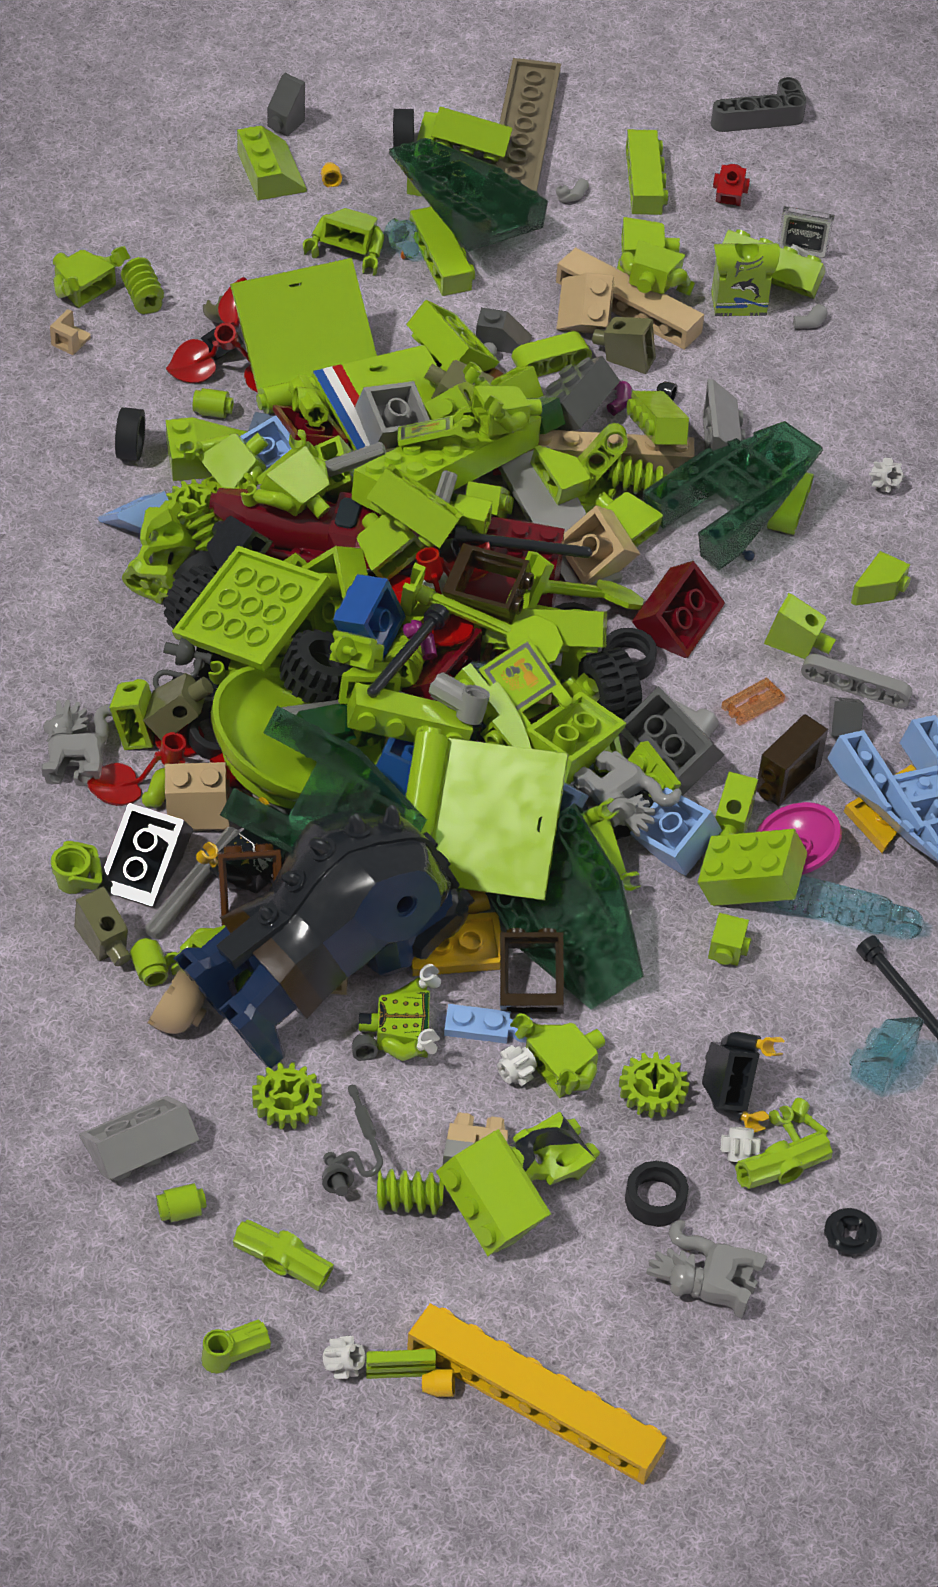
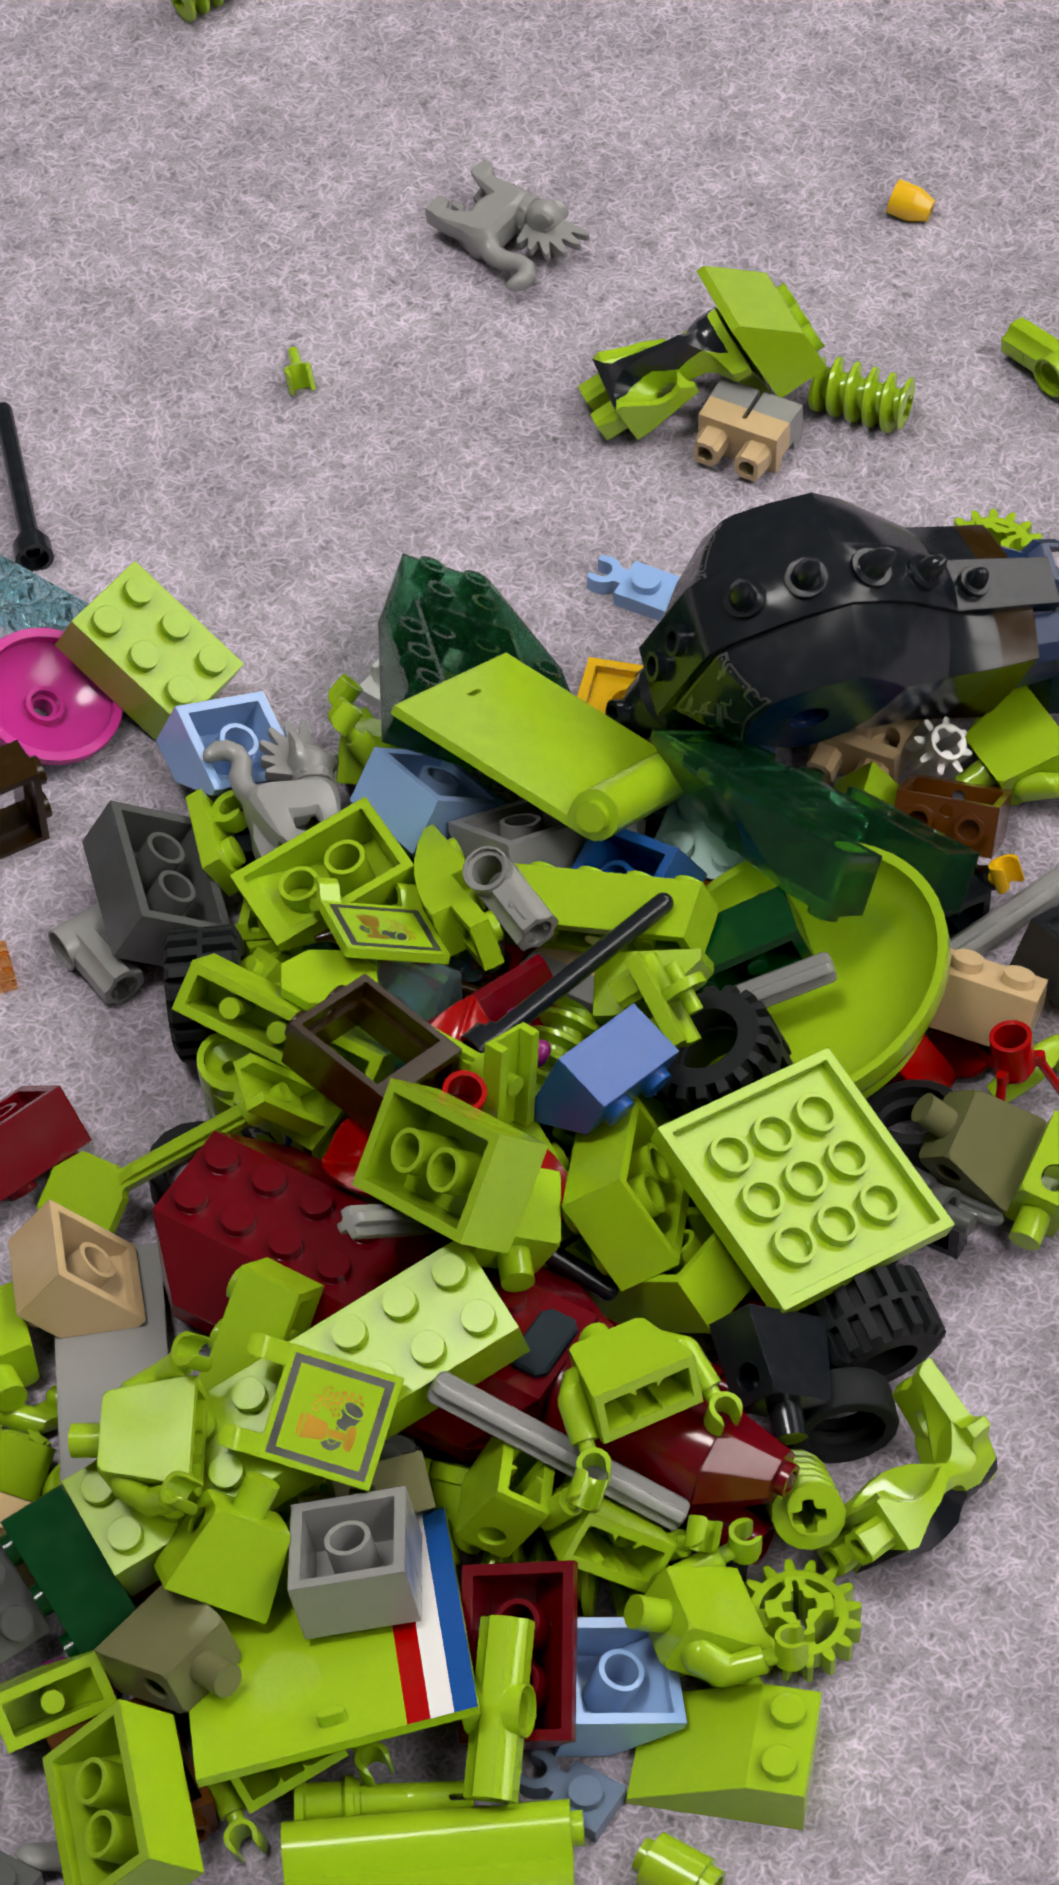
camera: 155 degrees left, 0 degrees up
(130, 433) = (885, 1802): black tyre -> none
(131, 515) = (925, 1623): light blue slope -> none
(337, 1175) = (953, 442): dark grey piece -> none
(344, 1357) = (1025, 240): white gear -> none
(399, 1363) = (955, 217): lime tile -> none
(466, 536) = (254, 1162): black piece -> none
(476, 513) = (313, 1229): lime brick -> none
(516, 1065) = (641, 511): white gear -> none
(531, 1002) = (552, 578): dark brown window -> none
(539, 1393) = (797, 160): yellow brick -> none
(560, 474) = (64, 1391): lime slope -> none
(562, 1053) = (568, 503): lime torso -> none
(638, 640) = (122, 1065): black tyre -> none
(638, 1086) = (457, 448): lime gear -> none
(652, 1214) = (518, 351): black tyre -> none
(729, 940) = (237, 604): lime brick -> none
(731, 1075) = (348, 403): black torso -> none
(736, 803) = (114, 764): lime torso -> none
(740, 1143) = (367, 351): white gear -> none
(783, 1161) = (332, 320): lime piece -> none
(800, 1108) = (267, 381): lime hand -> none
(852, 1220) = (306, 227): black gear -> none
(886, 1053) = (109, 388): clear light blue slope -> none

